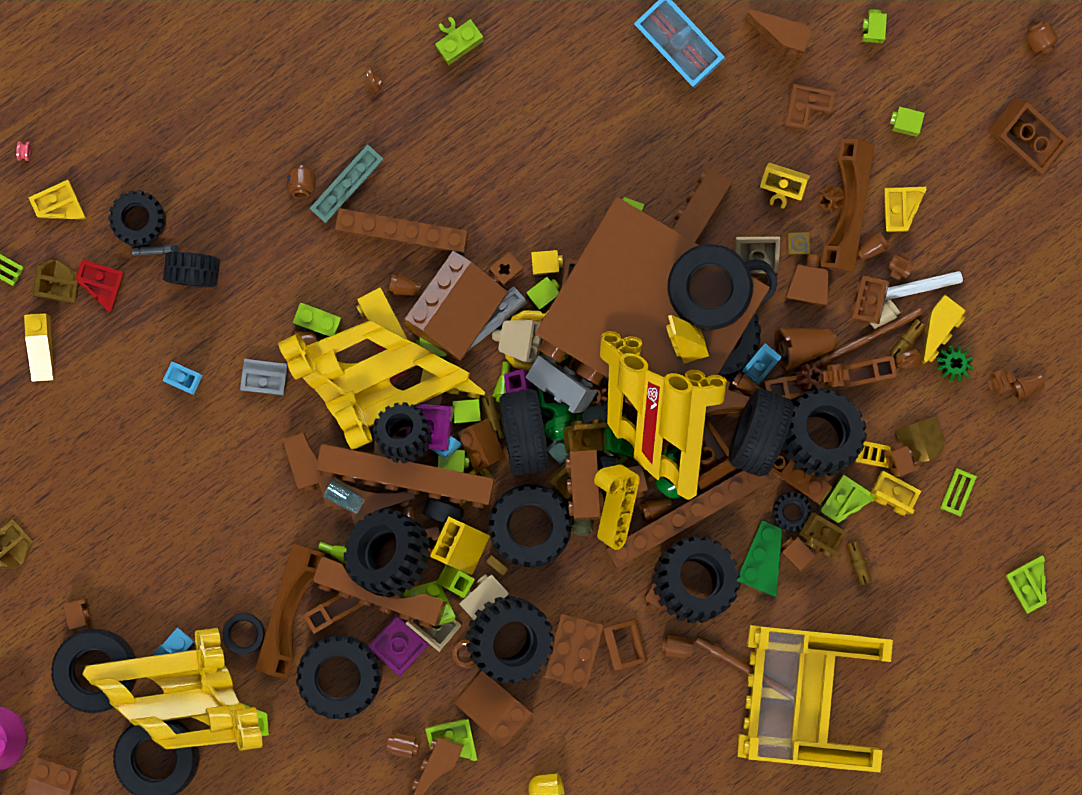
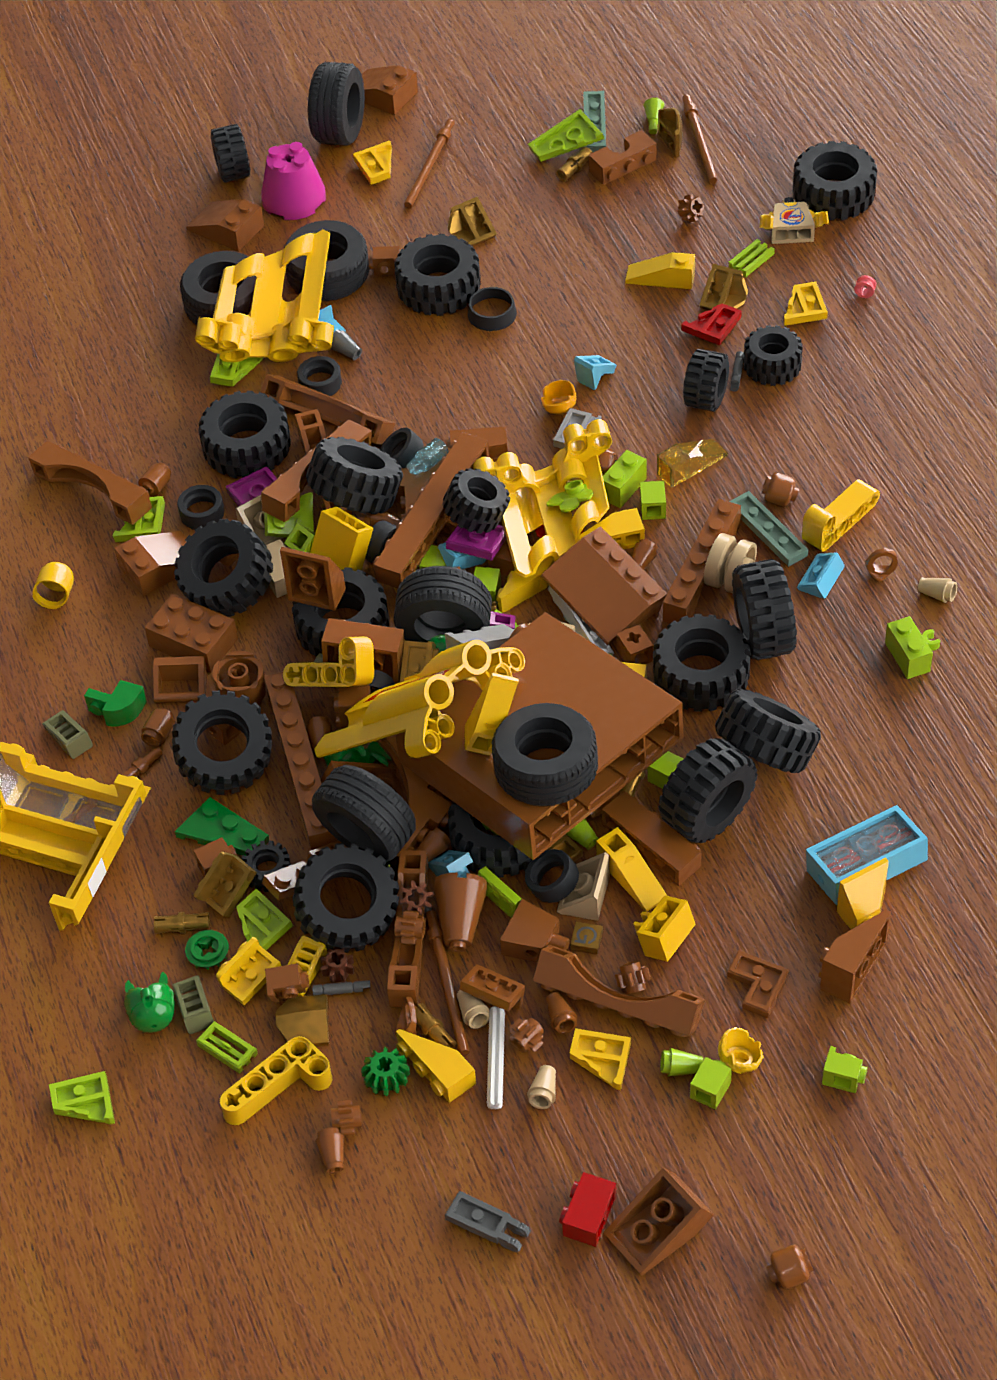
camera: 105 degrees right, 35 degrees down
(63, 549) = (431, 256): none -> black tyre
(140, 499) = (492, 323): none -> black tyre
(197, 620) = (345, 345): none -> dark grey cone
(229, 402) = (558, 397): none -> light orange hair
(277, 267) = (687, 459): none -> clear yellow slope
(316, 122) = (827, 525): none -> yellow beam
(325, 514) = (402, 446): none -> black tyre
(335, 290) = (653, 500): none -> lime brick
(365, 357) = (570, 499): none -> lime plate
(385, 28) = (938, 588): none -> tan cone
(386, 130) = (821, 574): none -> medium azure slope
(408, 203) = (725, 557): none -> tan wheel
(411, 697) = (197, 494): none -> black tyre
(465, 161) = (764, 608): none -> black tyre
(517, 178) = (701, 638): none -> black tyre
(526, 545) = (312, 578): none -> dark orange slope
(608, 144) = (768, 731): none -> black tyre
(629, 596) = (240, 674): none -> dark orange brick
(664, 169) = (707, 790): none -> black tyre
(664, 684) = (120, 706): none -> green brick
(702, 704) = (70, 735): none -> olive slope
(723, 34) = (862, 894): none -> yellow slope
(736, 219) = (630, 869): none -> yellow slope
(777, 319) = (500, 892): none -> lime tile
(878, 104) = (740, 1051): none -> yellow hair
(878, 428) = (337, 965): none -> copper gear
(886, 420) = (340, 988): none -> dark grey wheel
(886, 529) = (204, 940): none -> green gear
(895, 148) = (679, 1062): none -> lime cone
(930, 519) = (193, 1004): none -> olive slope
(939, 243) = (543, 1088): none -> tan cone
(946, 552) = (150, 1007): none -> green hair
(985, 445) = (241, 1102): none -> yellow beam
(1031, 187) = (588, 1209): none -> red brick
(1056, 259) = (486, 1221): none -> dark grey hinge

